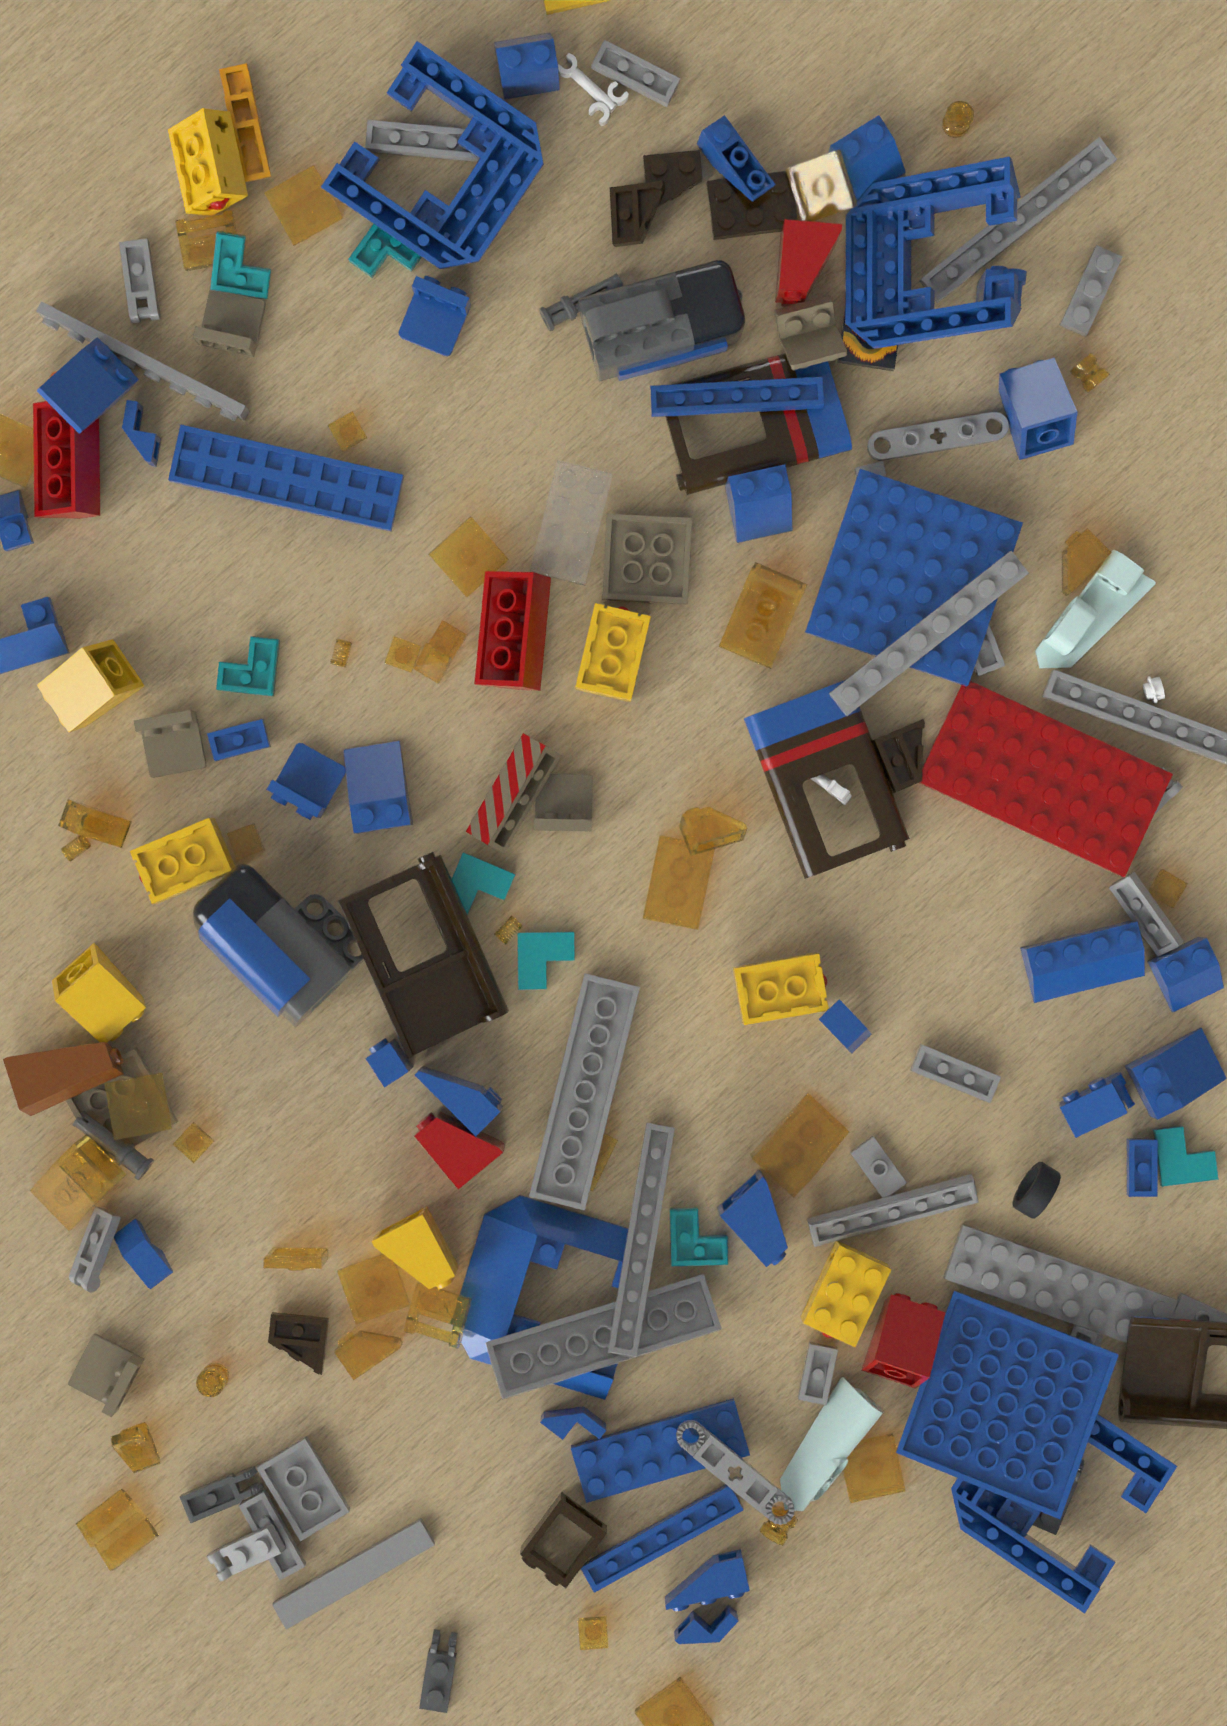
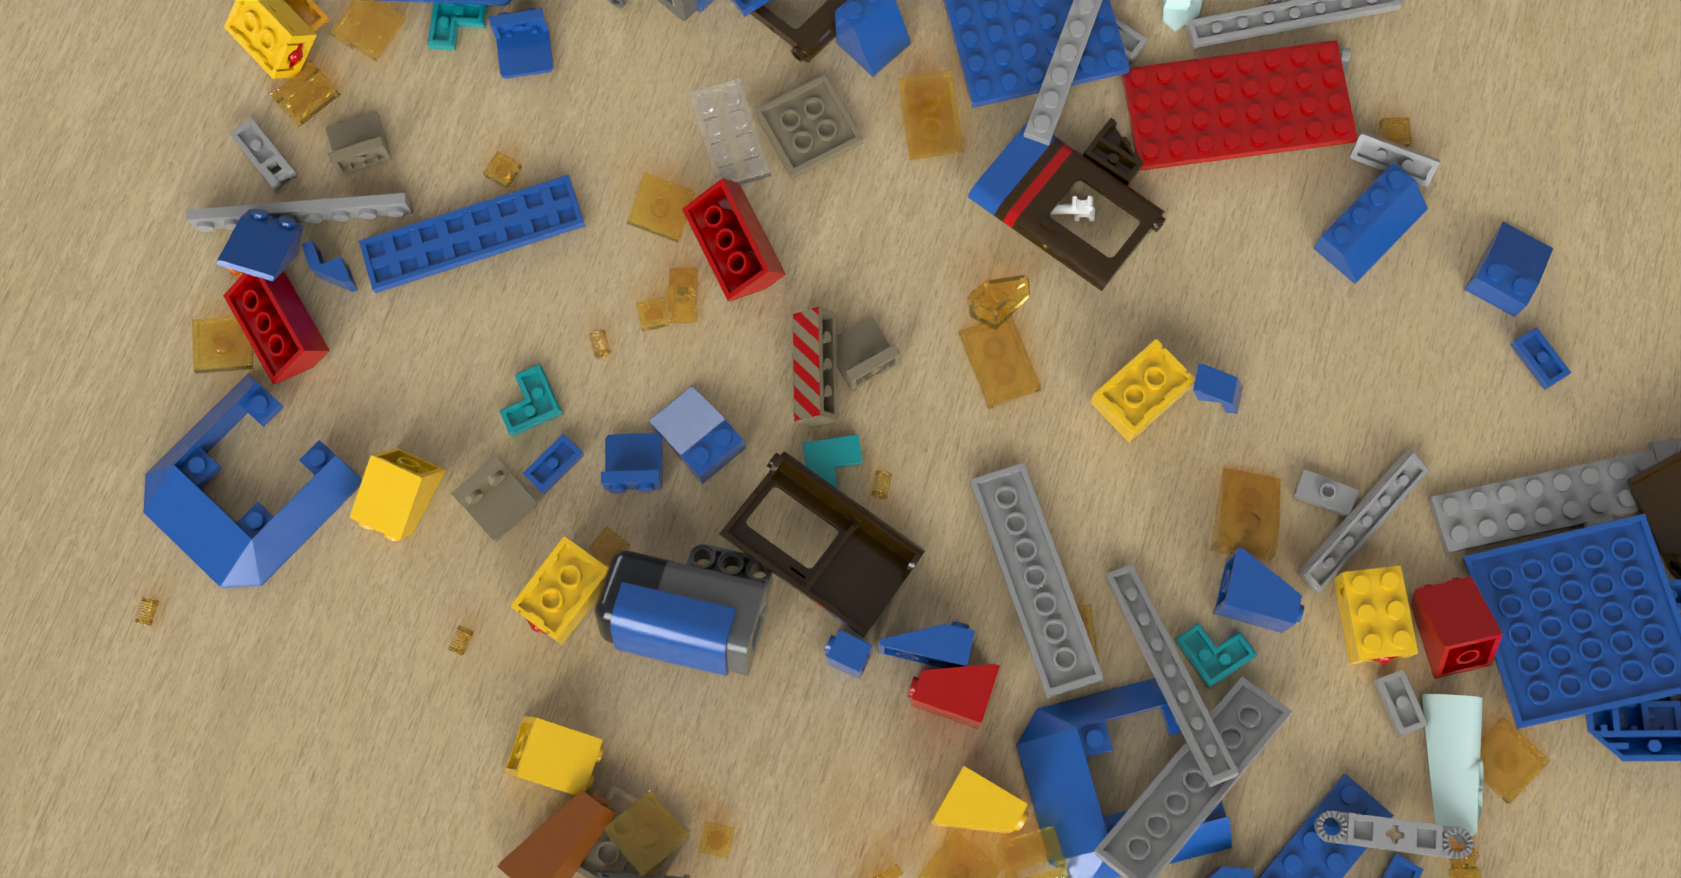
camera: 25 degrees left, 15 degrees down
(94, 823) = (465, 607): clear yellow slope -> none
(231, 274) = (338, 105): teal tile -> none
(536, 950) = (916, 490): teal tile -> none
(612, 652) = (827, 208): yellow piece -> none
(955, 1073) = (1334, 375): light grey plate -> none
(1036, 1190) = (1471, 425): black tyre -> none
(1097, 1104) = (1466, 330): blue hinge -> none
(1177, 1165) = (1565, 339): teal tile -> none
(1187, 973) = (1461, 184): blue slope -> none

